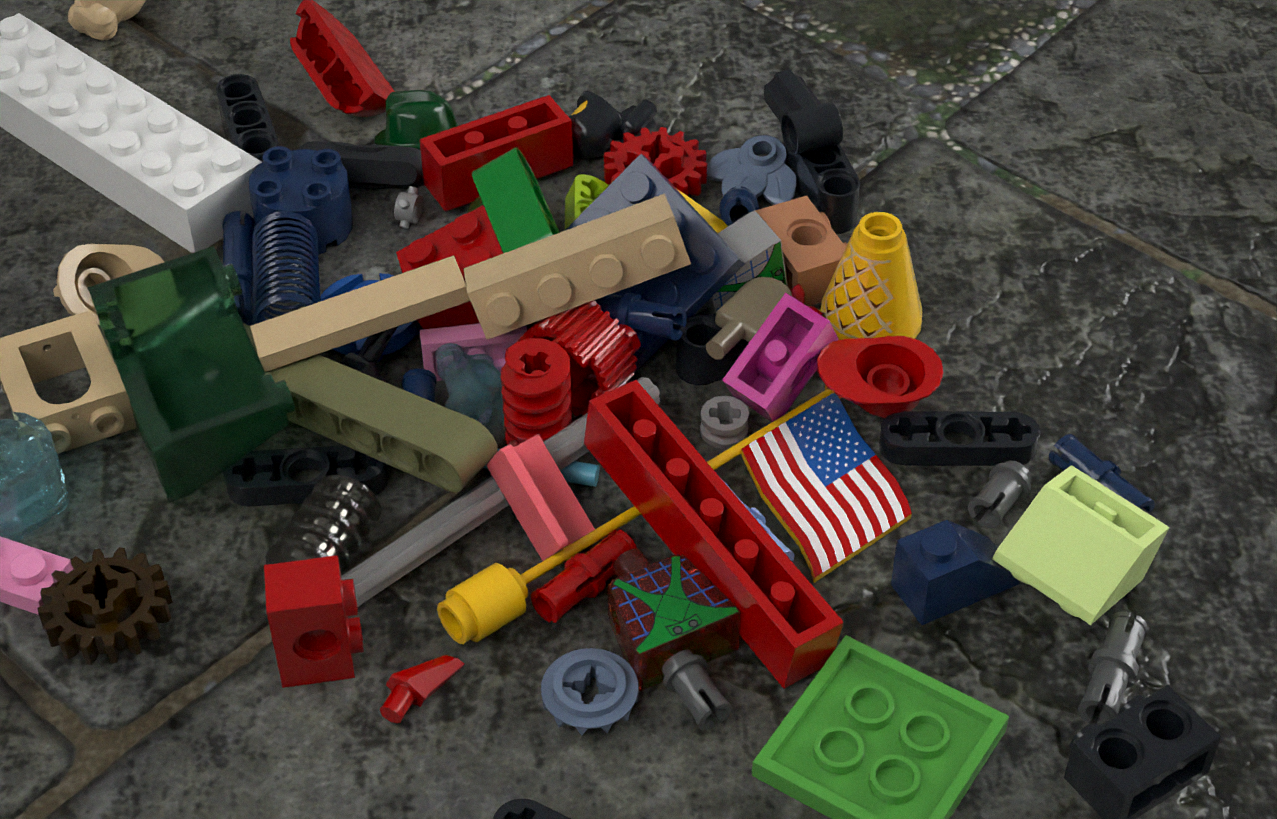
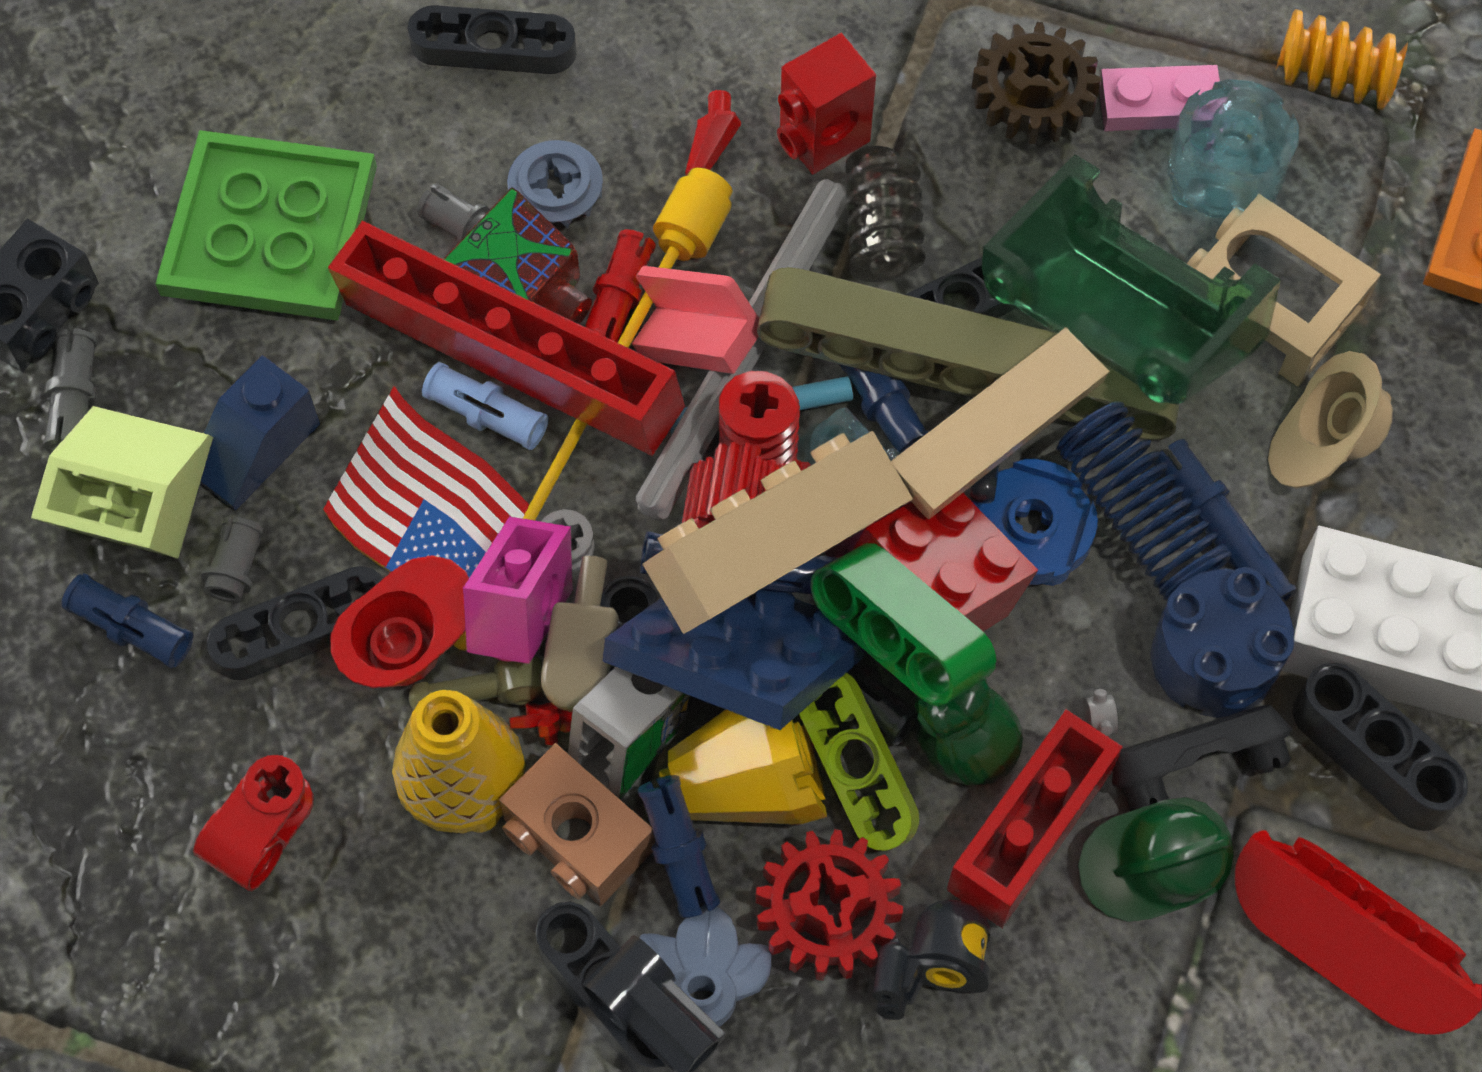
camera: 155 degrees right, 20 degrees up
(1031, 324) = (252, 830): none -> red piece

